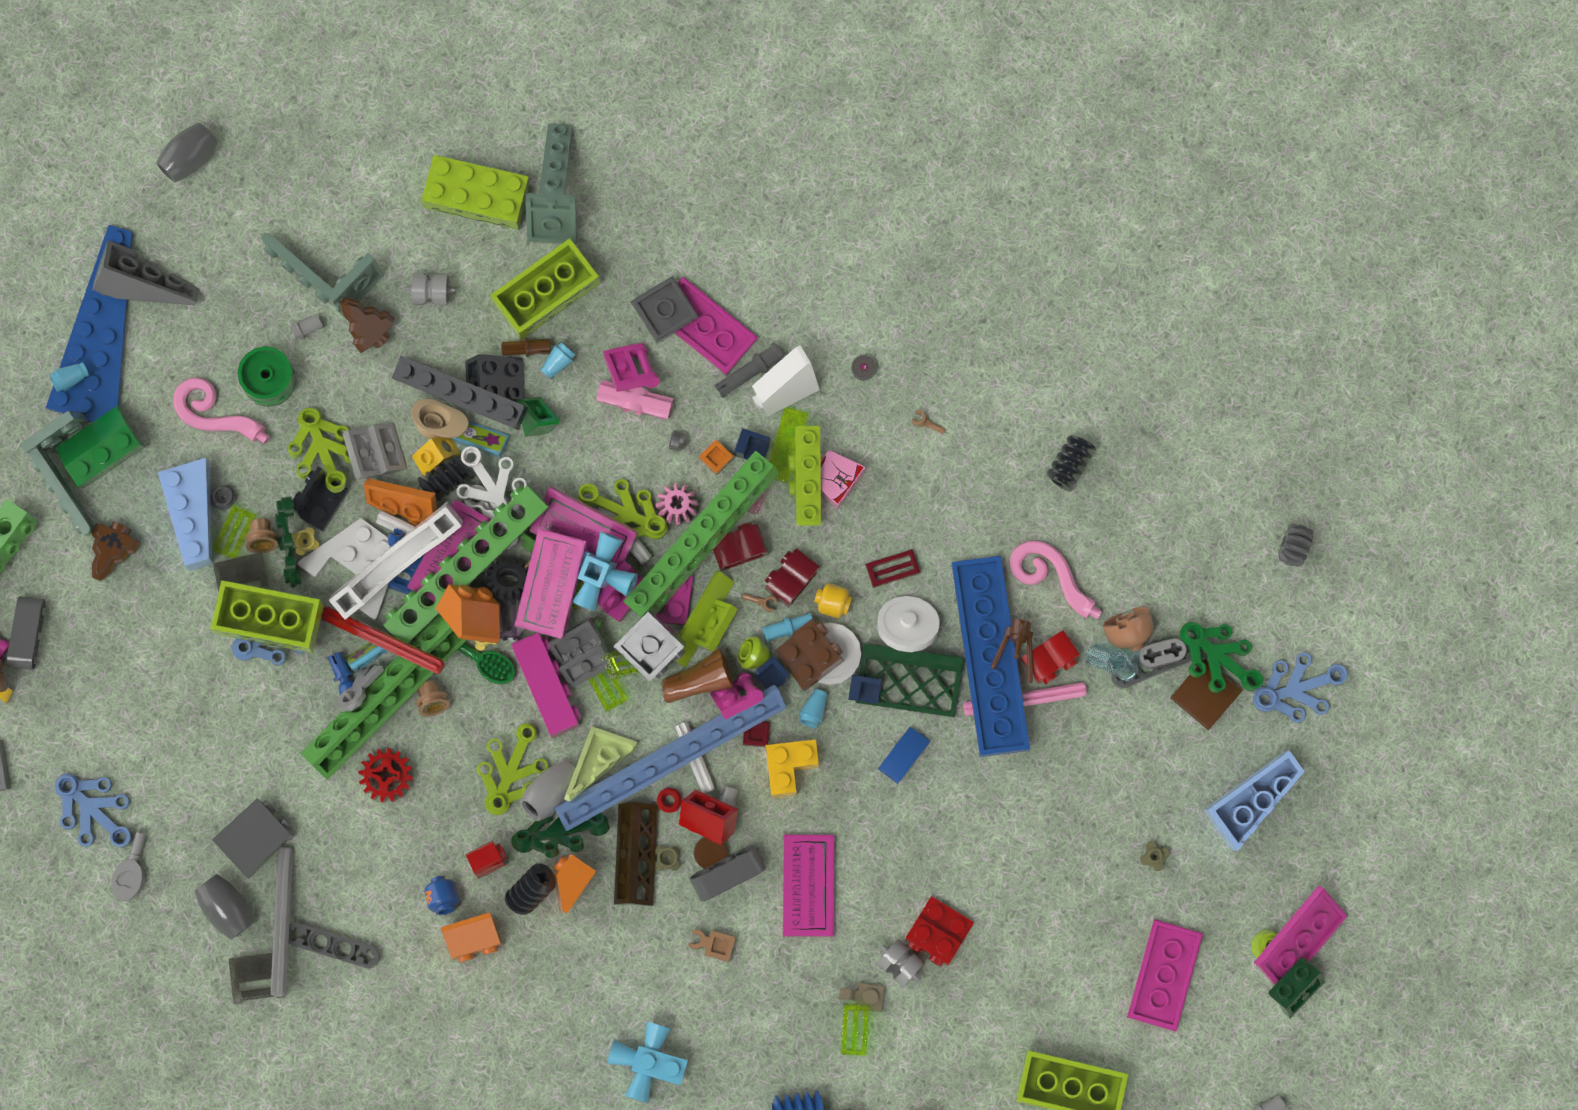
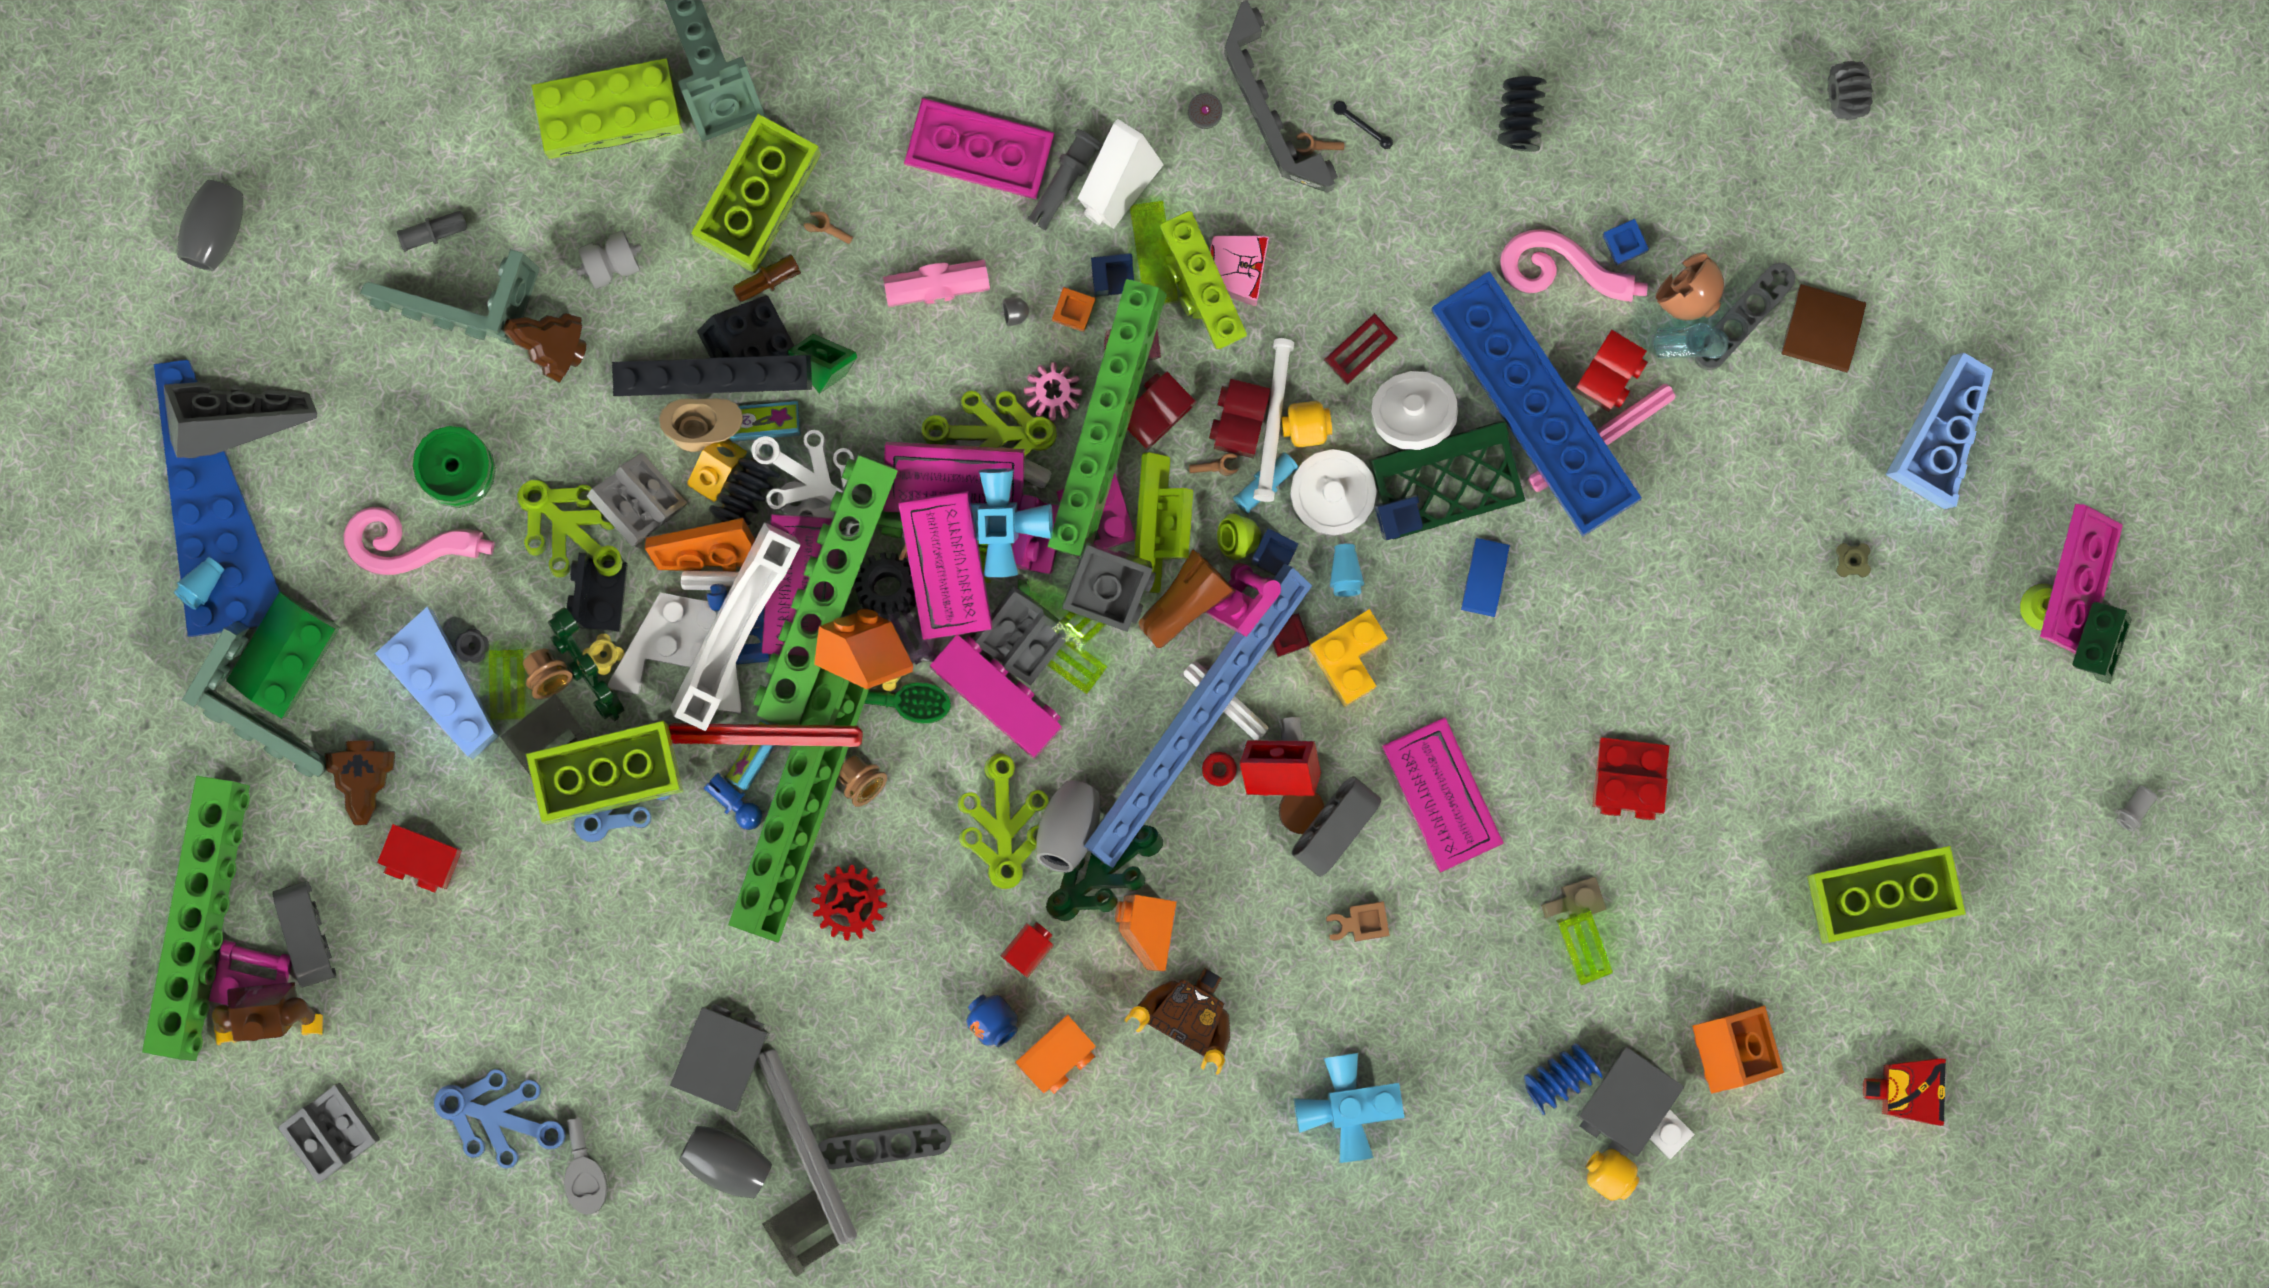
camera: 30 degrees left, 5 degrees up
(123, 618) = (418, 857): none -> red brick
(306, 326) = (472, 380): light grey pin -> none
(326, 219) = (432, 230): none -> dark grey axle
(354, 696) = (763, 821): light grey piece -> none
(530, 889) = (1102, 961): black piece -> none
(557, 360) = (814, 277): medium azure cone -> none
(571, 952) = (1188, 1016): none -> torso
(582, 333) = (825, 226): none -> medium nougat hand
(599, 755) = (1106, 754): yellowish green wing -> none
(623, 370) = (905, 251): dark pink plate -> none
(630, 853) = (1203, 858): dark brown fence -> none
(664, 309) = (920, 151): dark grey tile -> none
(673, 853) = (1261, 845): olive plate -> none
(783, 631) = (1283, 348): none -> white bar
(810, 654) = (1310, 505): reddish brown plate -> none
(900, 963) = (1603, 838): light grey wheel -> none
(912, 437) = (1310, 172): none -> dark grey slope
(953, 406) = (1340, 108): none -> black hinge
(1019, 634) = (1563, 359): reddish brown plant -> none
(1100, 577) = (1625, 242): none -> blue plate
(1164, 659) = (1742, 296): light grey beam -> none
(1164, 975) = (1933, 702): dark pink tile -> none
(1217, 654) = (1816, 274): green plant -> none
(1295, 689) = (1929, 271): medium blue plant -> none

